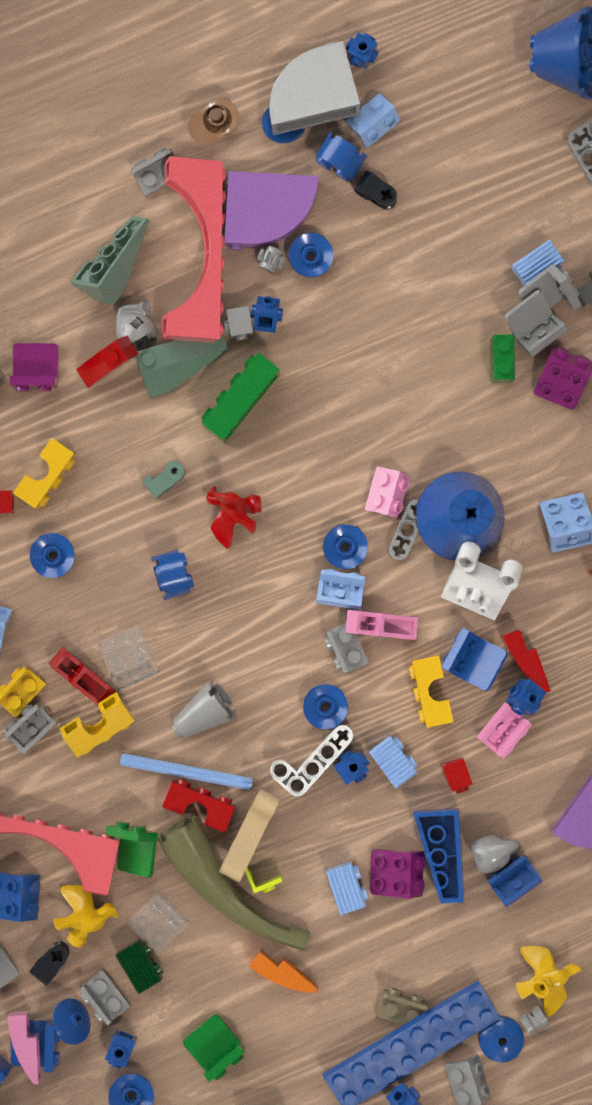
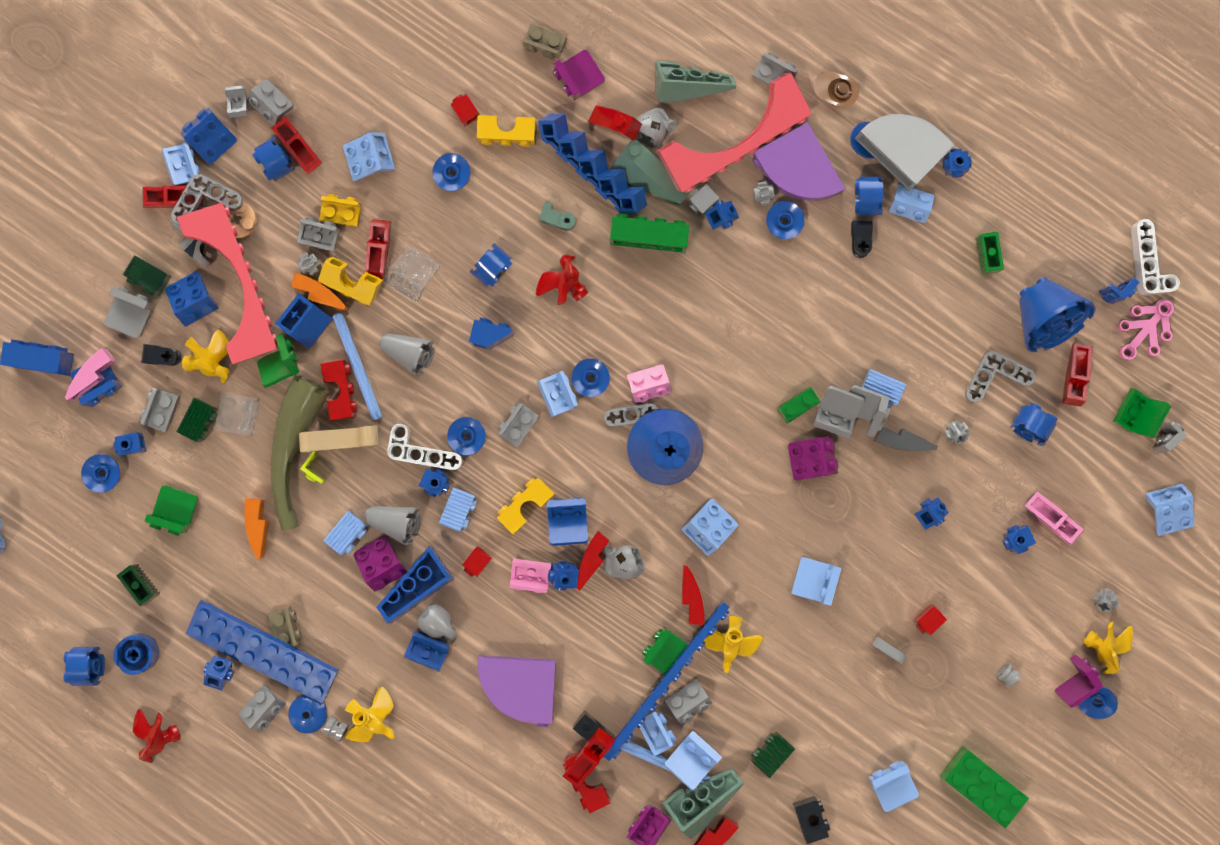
camera: 60 degrees right, 0 degrees up
(53, 755) = (309, 264): none -> light grey gear
(64, 1022) = (122, 392): blue dish -> none
(87, 764) = (317, 292): none -> orange slope
(108, 796) = (303, 321): none -> blue slope
(134, 411) = (591, 164): none -> blue brick
(240, 620) = (488, 335): none -> blue slope
(366, 831) = (395, 522): none -> light grey cone
(381, 624) = (550, 439): bright pink slope -> none
(471, 75) = (989, 253): none -> green brick
(479, 585) = (623, 491): white piece -> none
(549, 630) = (623, 563): none -> light grey piece

